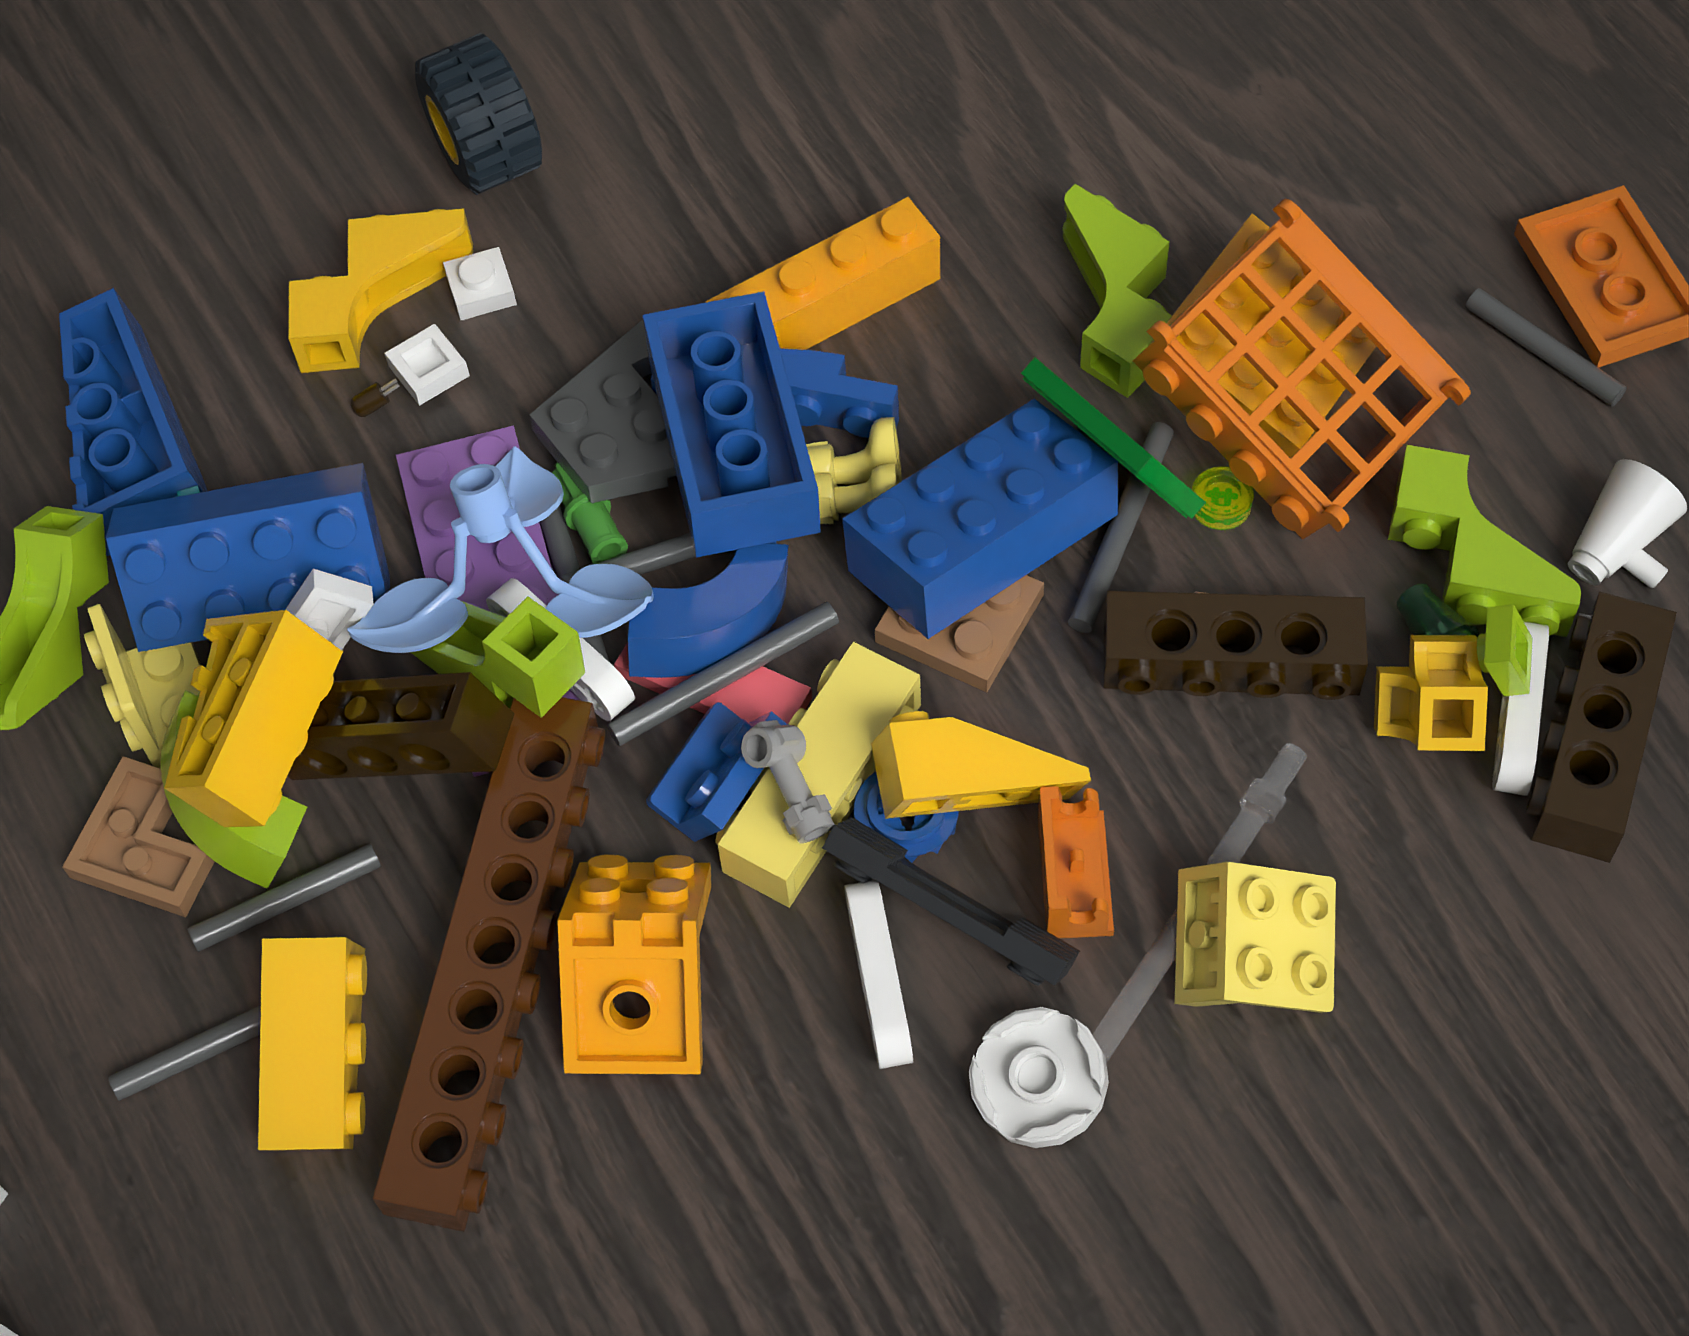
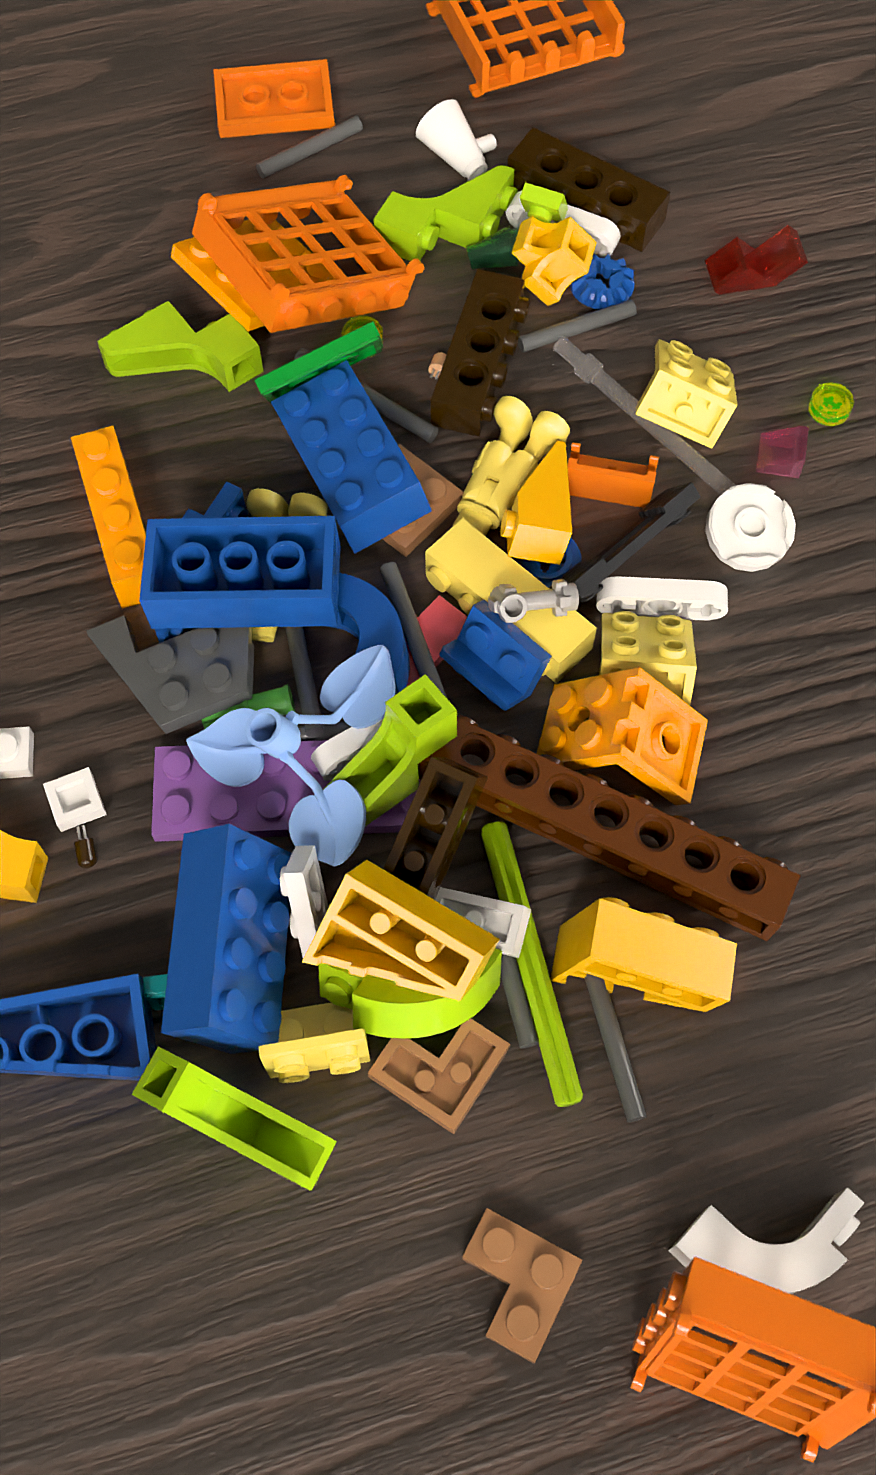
camera: 80 degrees left, 5 degrees up
(297, 918) = (533, 971): none -> lime axle
(333, 833) = (500, 918): none -> white plate
(775, 967) = (656, 644): none -> light yellow bracket
(1043, 715) = (500, 471): none -> light yellow piece
(1197, 1108) = (783, 451): none -> clear pink slope
(1319, 1170) = (831, 404): none -> clear neon green tile
(1343, 773) = (577, 325): none -> dark grey bar
(1435, 813) = (594, 293): none -> blue gear
(1554, 1005) = (743, 268): none -> clear red slope

